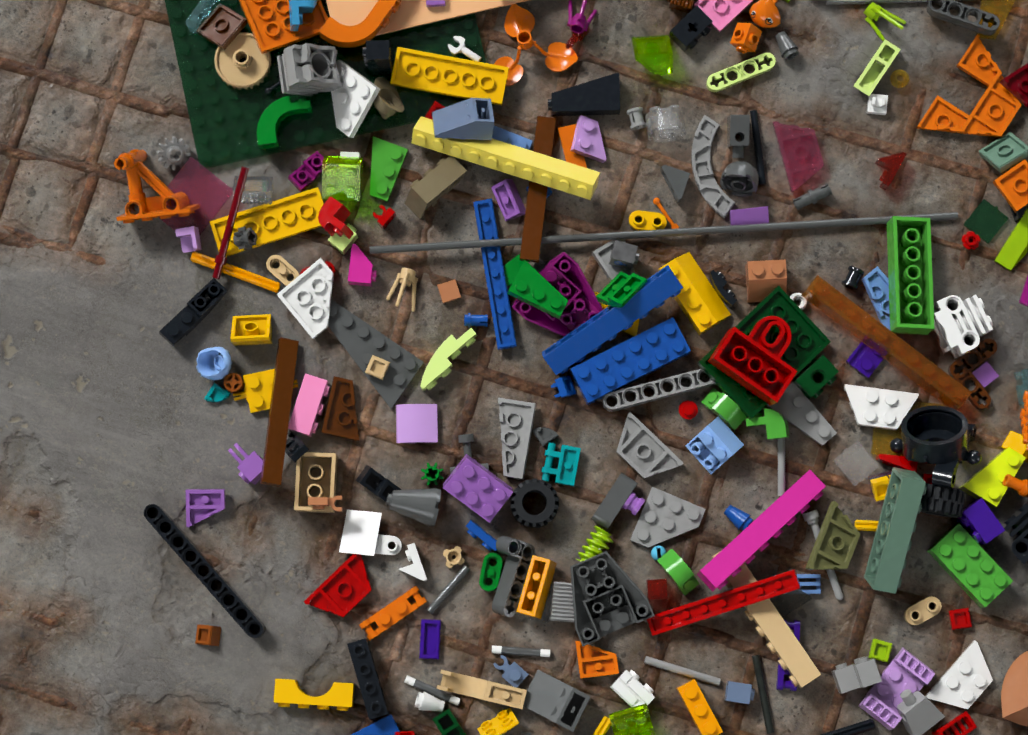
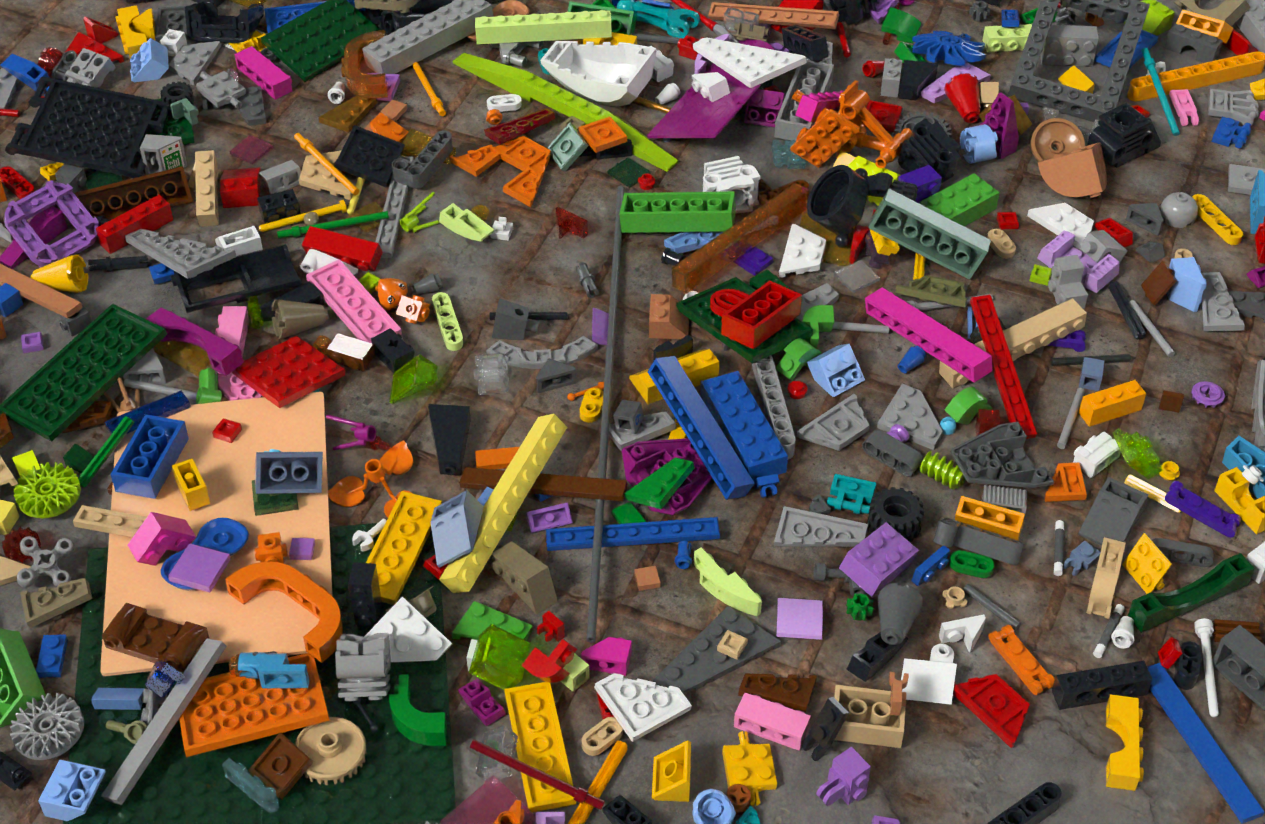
camera: 85 degrees left, 35 degrees down
(245, 238) = (559, 761): dark grey gear -> none
(279, 412) = (784, 738): reddish brown tile -> none
(406, 278) = (627, 613): tan plant -> none
(430, 639) = (1050, 628): dark purple tile -> none
(588, 139) = (494, 442): lavender wing -> none
(621, 289) = (670, 409): green slope -> none
(636, 118) = (479, 401): light grey bush -> none
(740, 178) = (560, 324): dark grey cylinder -> none
(798, 152) = (541, 285): clear pink wing -> none
(985, 374) = (775, 181): medium lavender tile -> none

